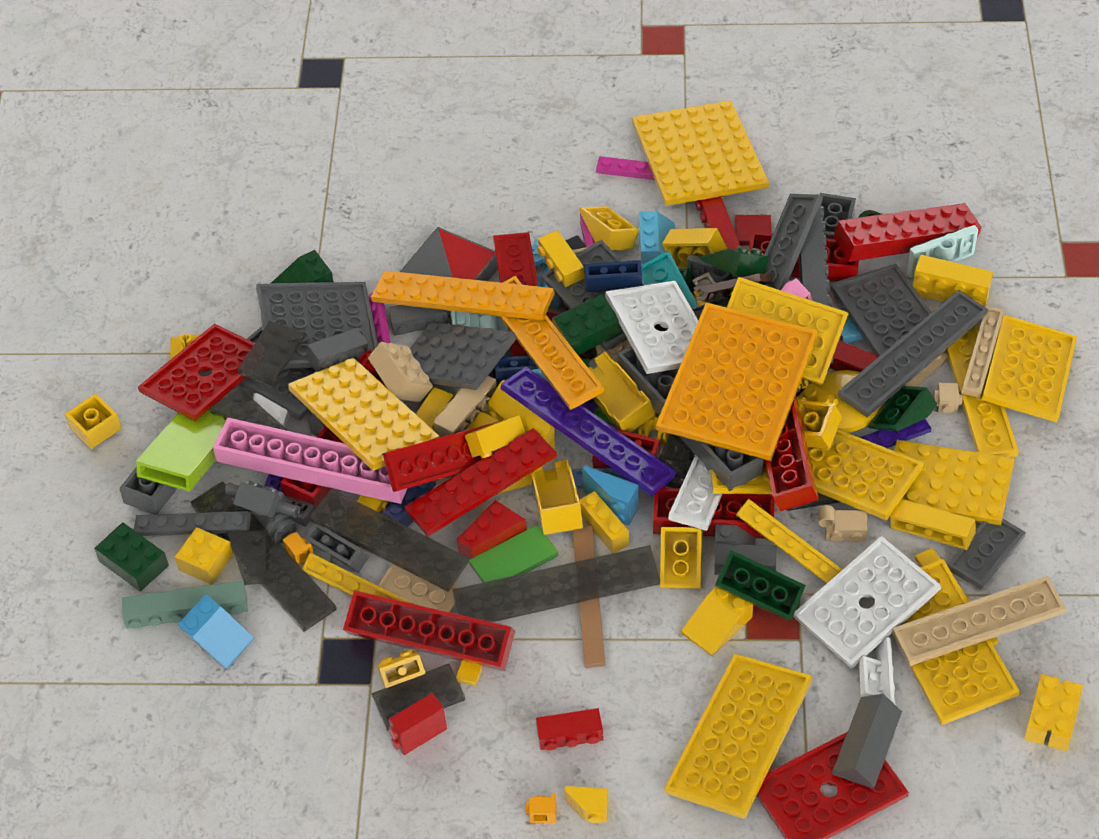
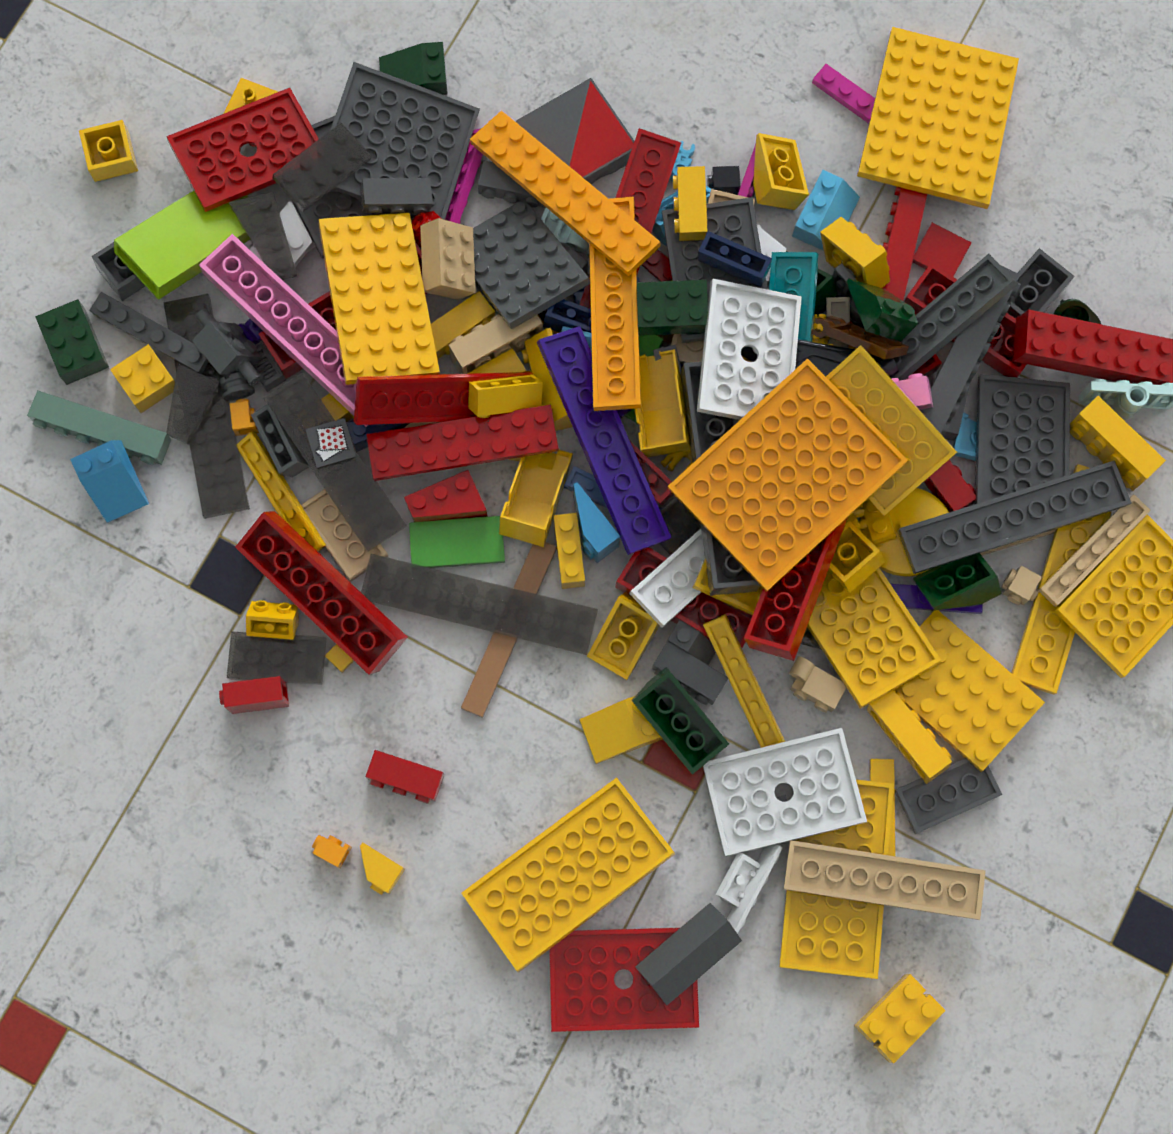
camera: 20 degrees right, 25 degrees up
(379, 525) = (330, 442): none -> sticker

